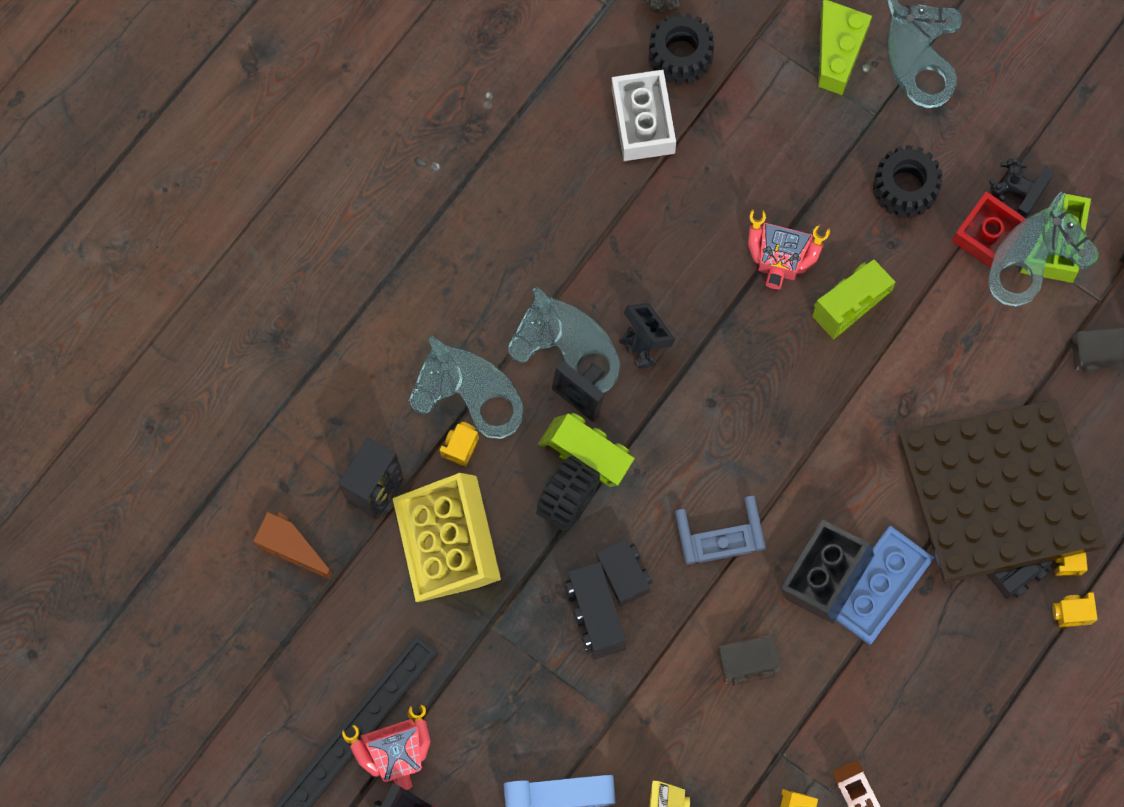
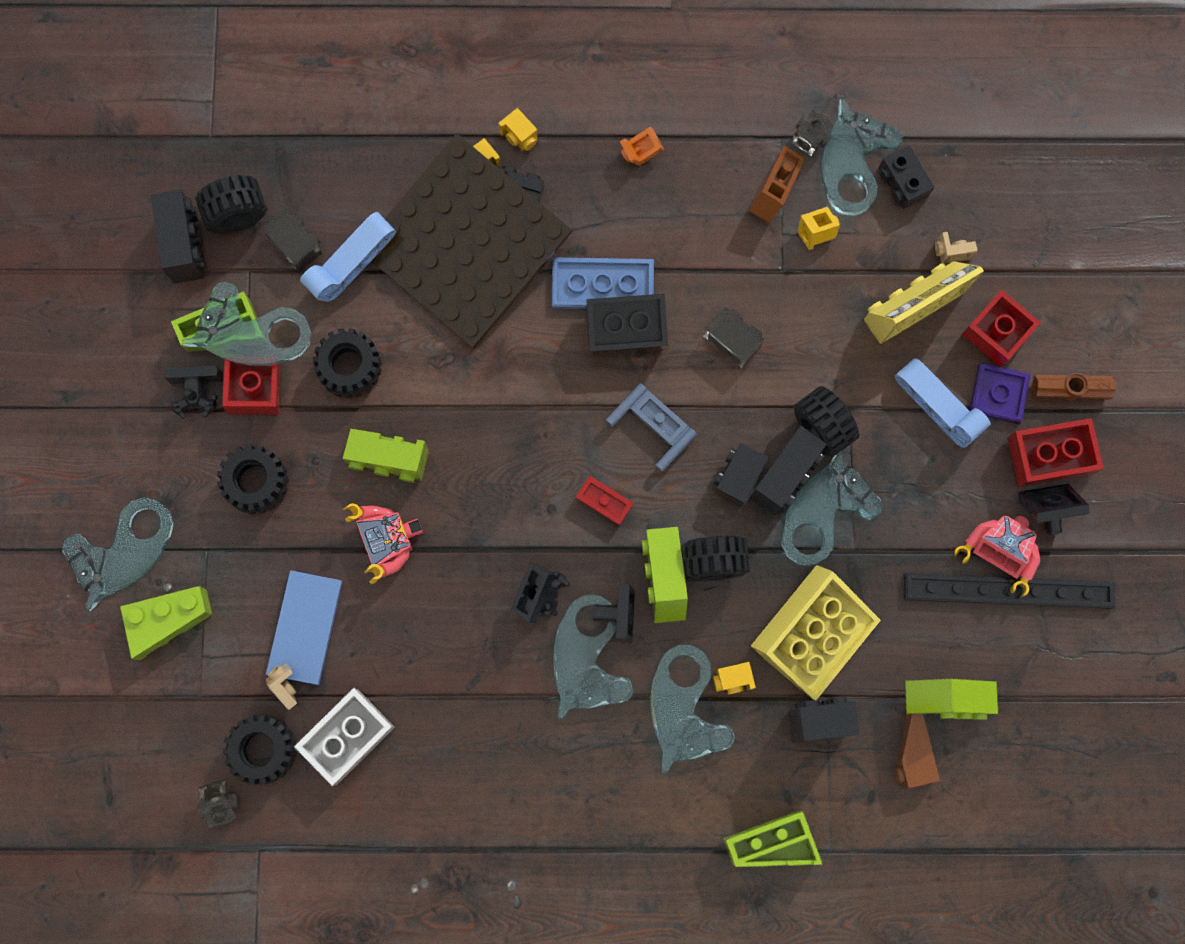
camera: 135 degrees left, 5 degrees up
(305, 601) = (952, 698): none -> lime wedge
(309, 377) = (774, 843): none -> lime wedge
(556, 641) = (828, 490): none -> clear light blue animal
(615, 673) = (828, 419): none -> black tyre
(685, 447) = (604, 500): none -> red plate
(718, 94) = (284, 690): none -> tan bracket
(755, 146) = (305, 626): none -> medium blue tile
(966, 301) = (333, 348): none -> black tyre
(985, 707) = (641, 147): none -> orange bracket
(1049, 378) = (349, 260): none -> light blue beam

